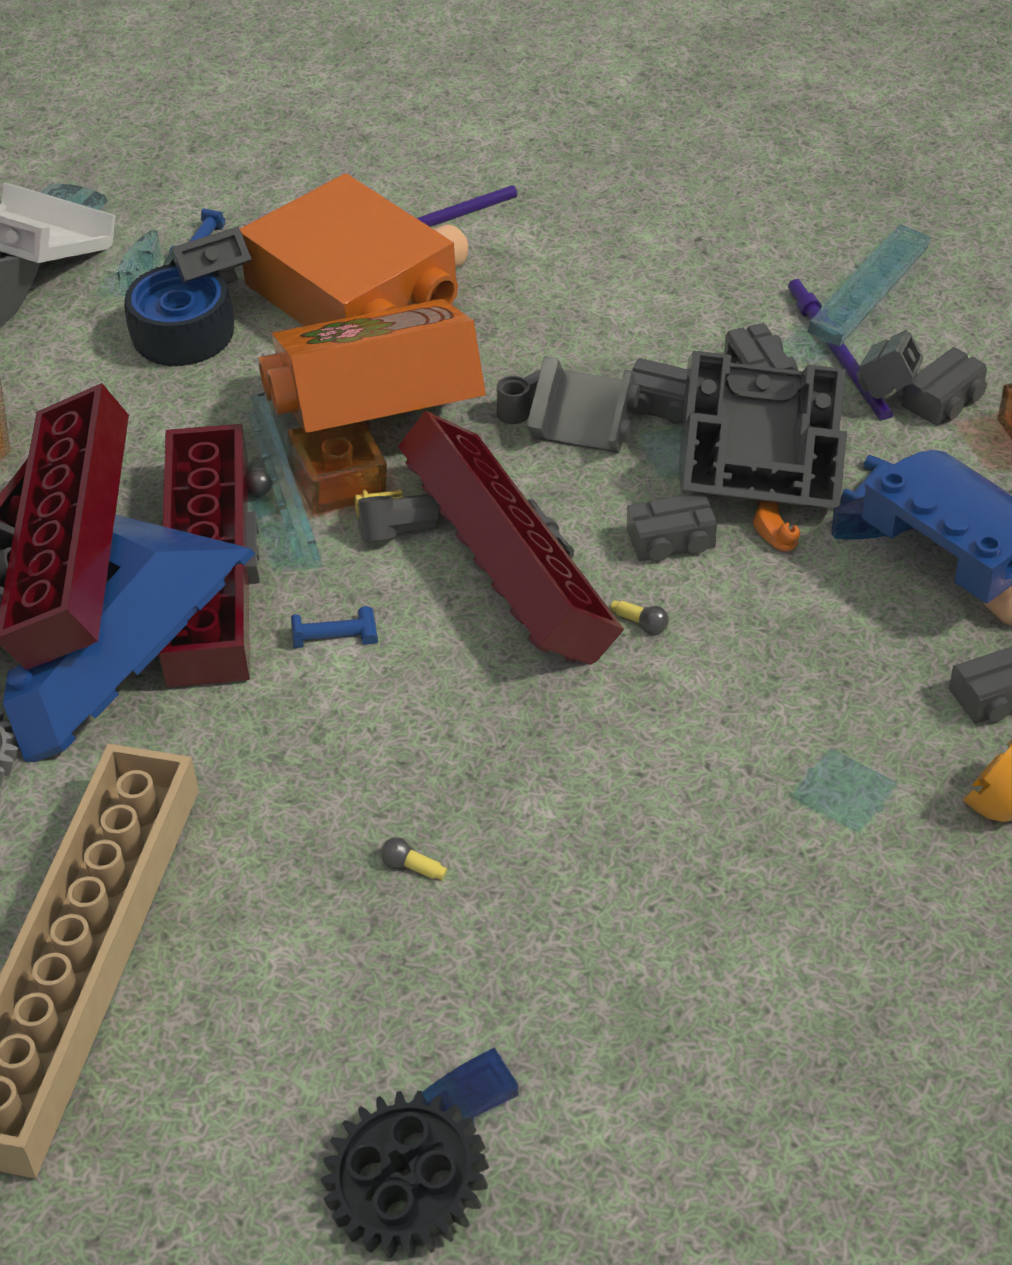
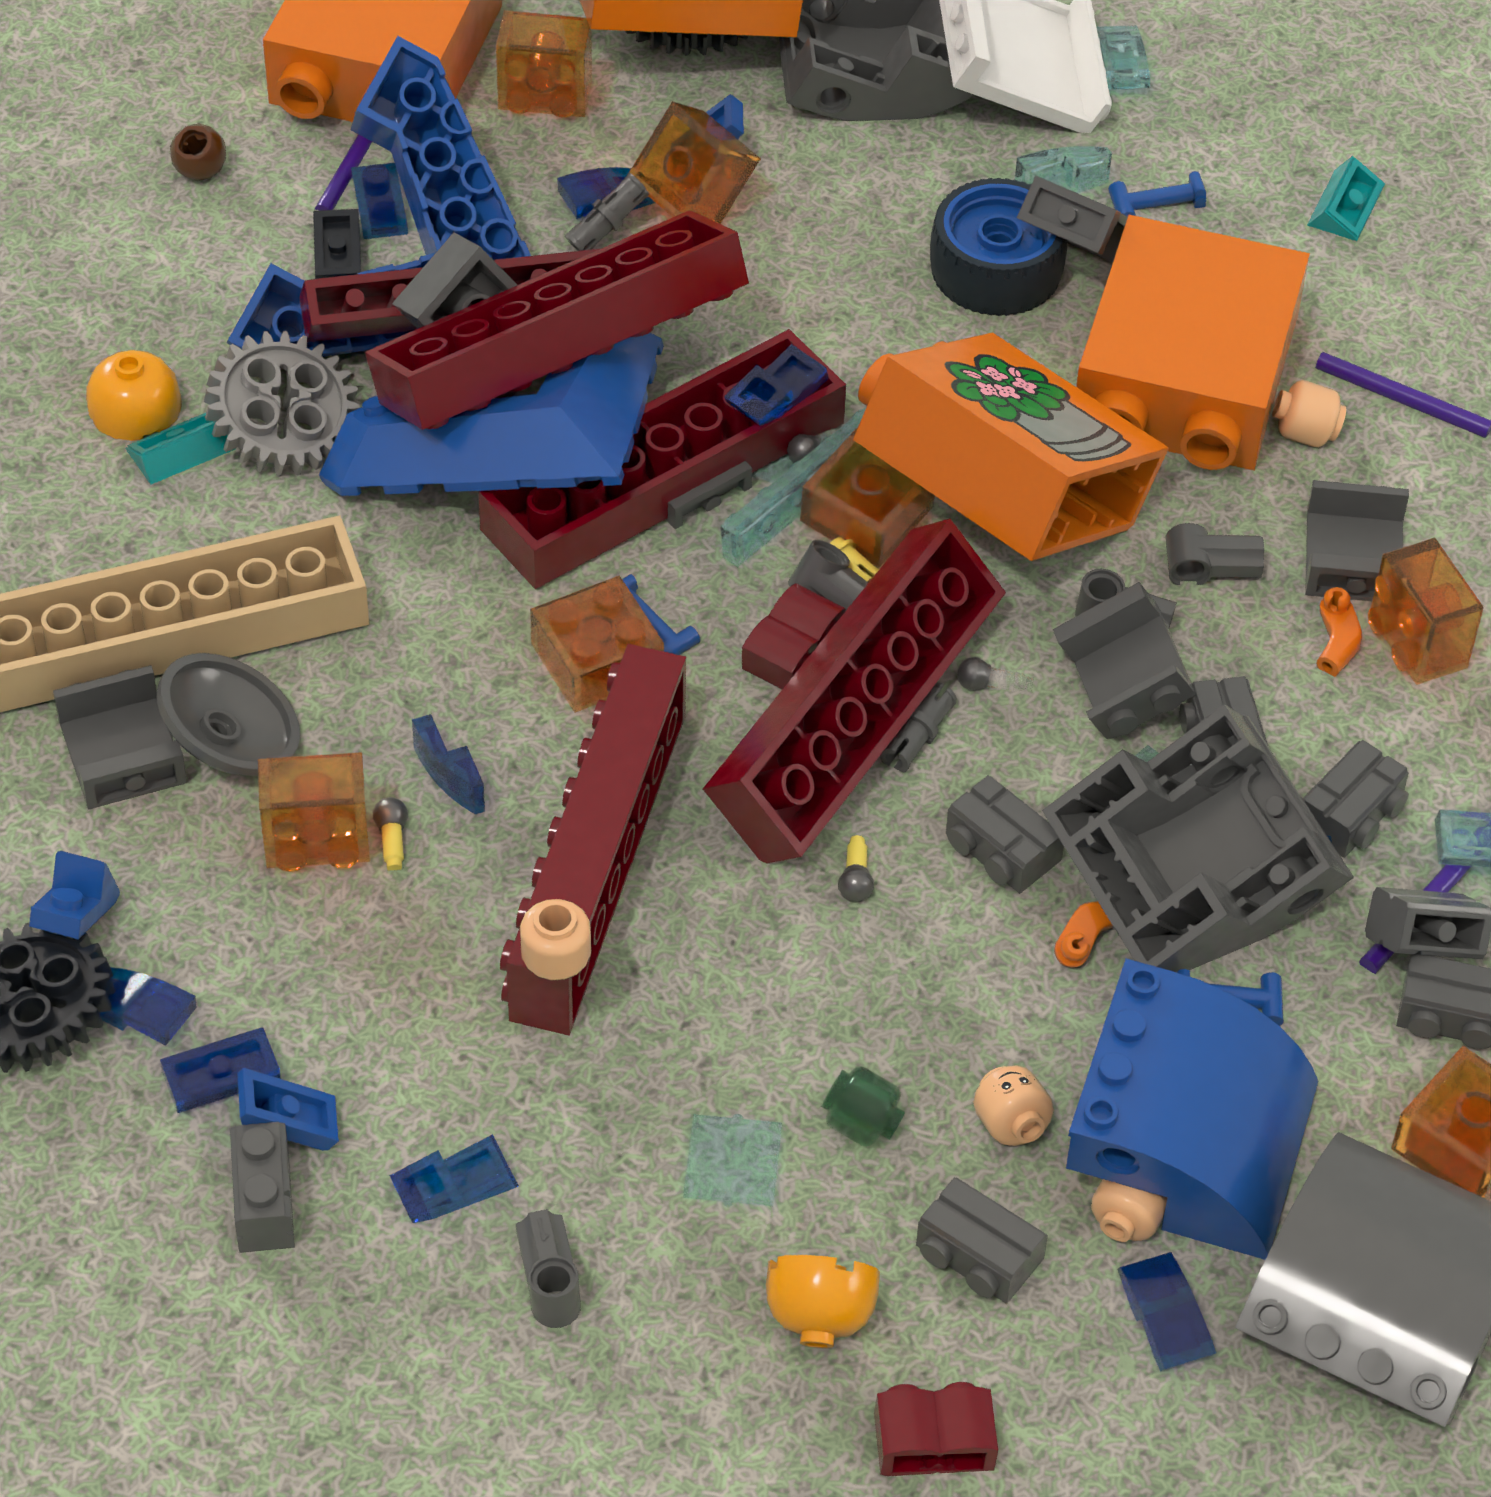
camera: 55 degrees right, 5 degrees up
(182, 1000) = (118, 737): none -> dark grey panel
(216, 452) = (779, 388): none -> clear blue slope
(231, 907) = (226, 713): none -> dark grey dish
(280, 166) = (1347, 200): none -> teal slope
(336, 1092) = (78, 897): none -> blue slope
(340, 660) = (586, 634): none -> clear orange brick
(376, 887) = (313, 811): none -> clear orange brick
(395, 794) = (451, 770): none -> clear blue slope
(421, 557) = (789, 635): none -> dark red brick
(517, 338) = (1199, 556): none -> dark grey piece
(527, 481) = (977, 674): none -> piece
(534, 731) = (600, 824): none -> dark red brick
(557, 281) = (1349, 534): none -> dark grey panel
(568, 1067) = (211, 1070): none -> clear blue plate
(619, 312) = (1342, 629): none -> orange arm
(644, 1040) = (306, 1112): none -> blue slope
(649, 262) = (1425, 611): none -> clear orange brick
(657, 761) = (555, 939): none -> light nougat head
(709, 1083) = (262, 1187): none -> dark grey brick
(767, 959) = (446, 1185): none -> clear blue slope
(852, 694) = (863, 1106): none -> clear green head
(891, 931) = (549, 1268): none -> dark grey piece
(900, 618) = (1013, 1105): none -> light nougat head

